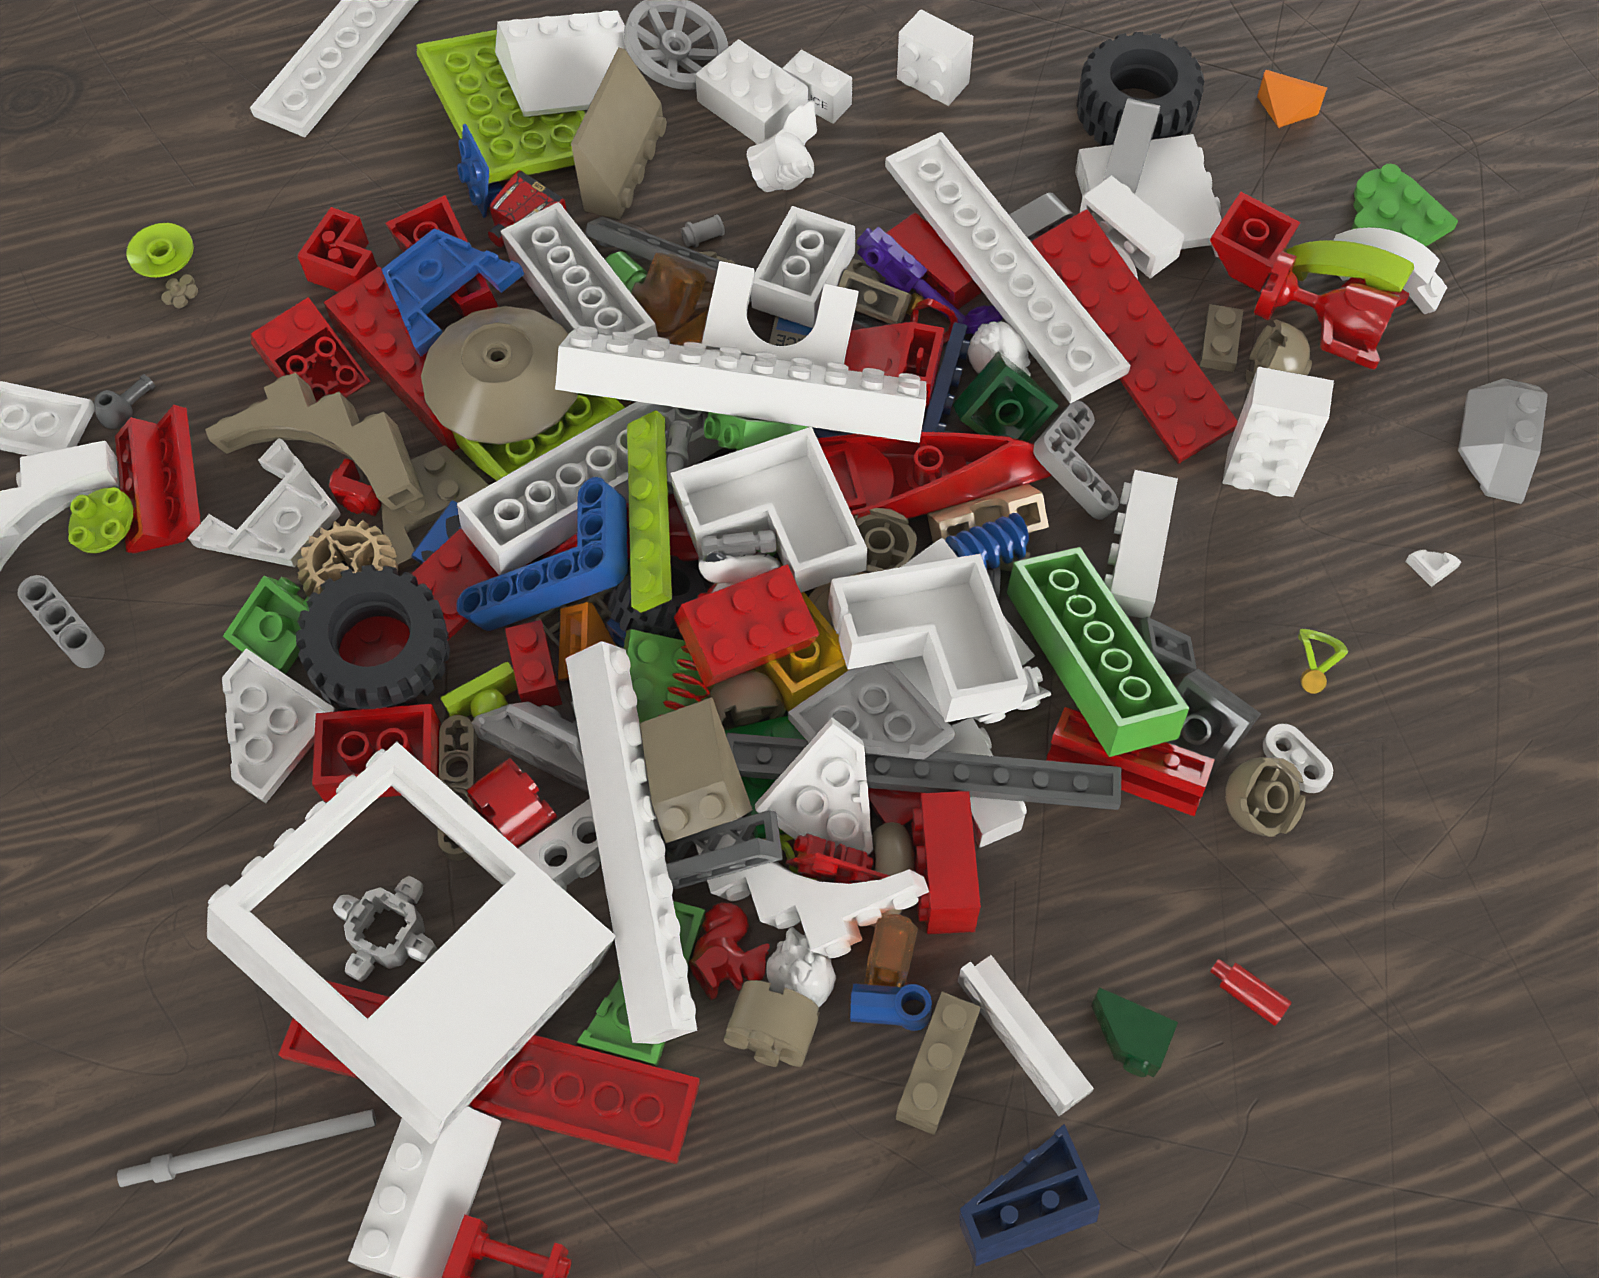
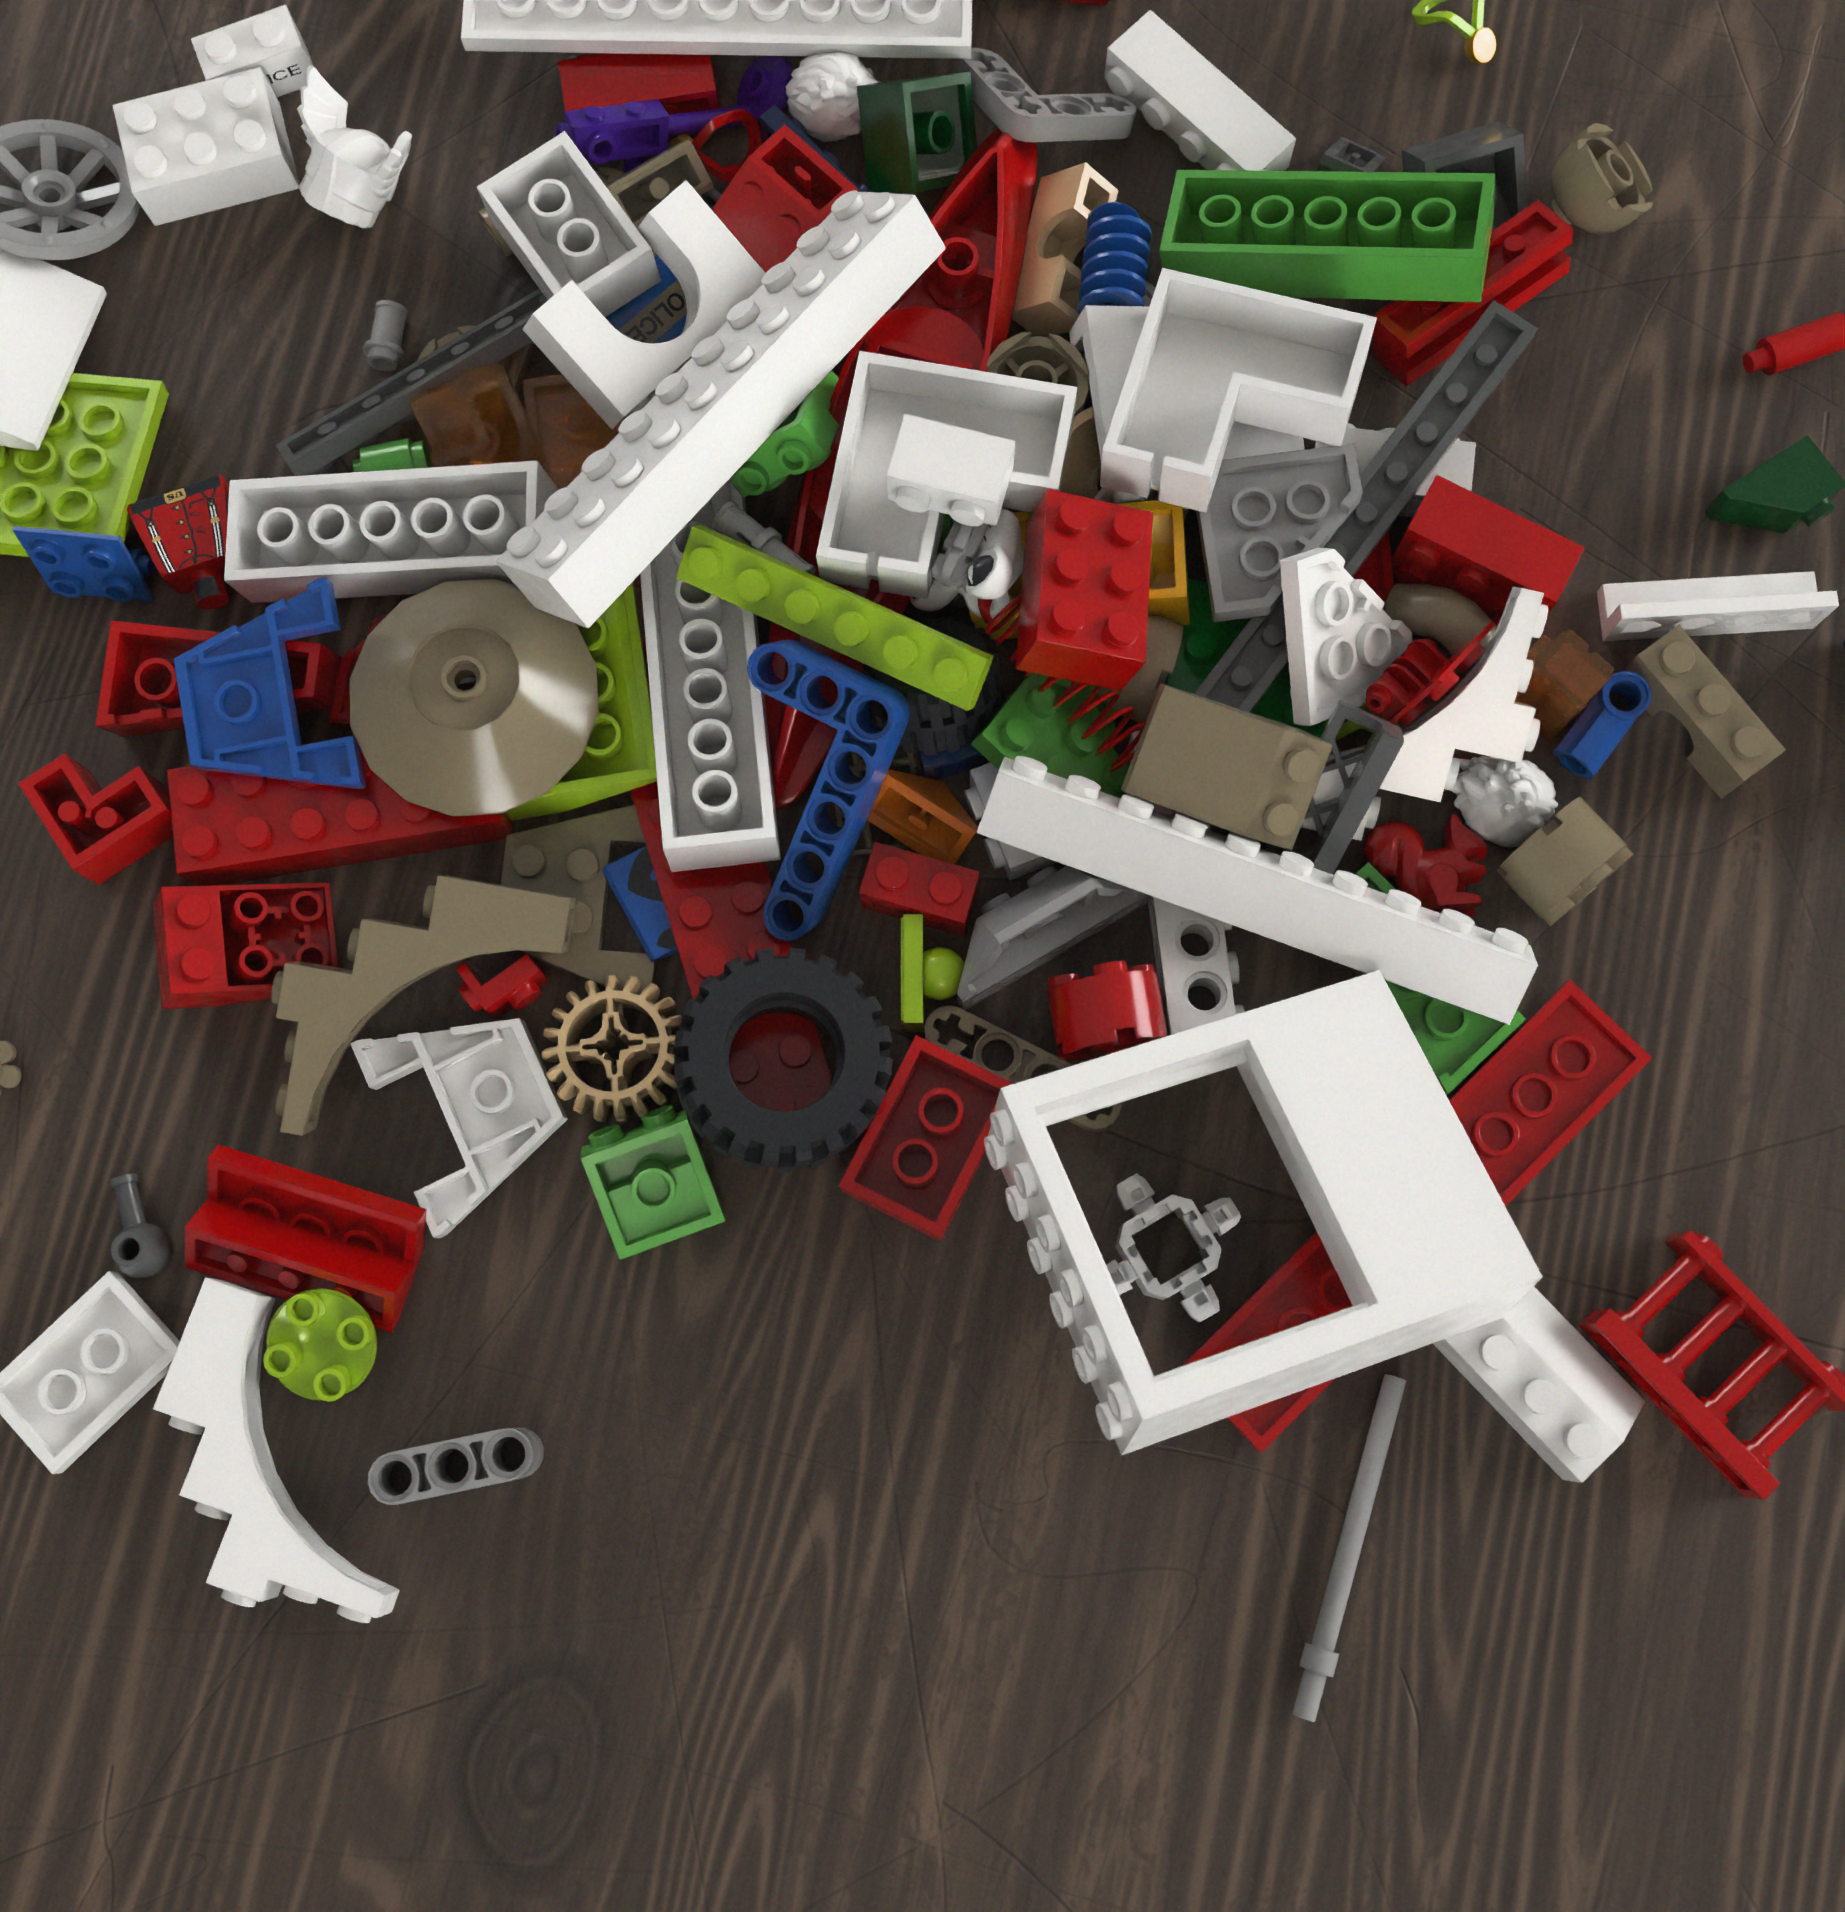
camera: 55 degrees left, 15 degrees up
(267, 723) = (792, 1257): white plate -> none
(617, 138) = (179, 350): dark tan slope -> none
(760, 506) = (949, 471): none -> white brick
(1301, 754) = (1561, 119): white plate -> none

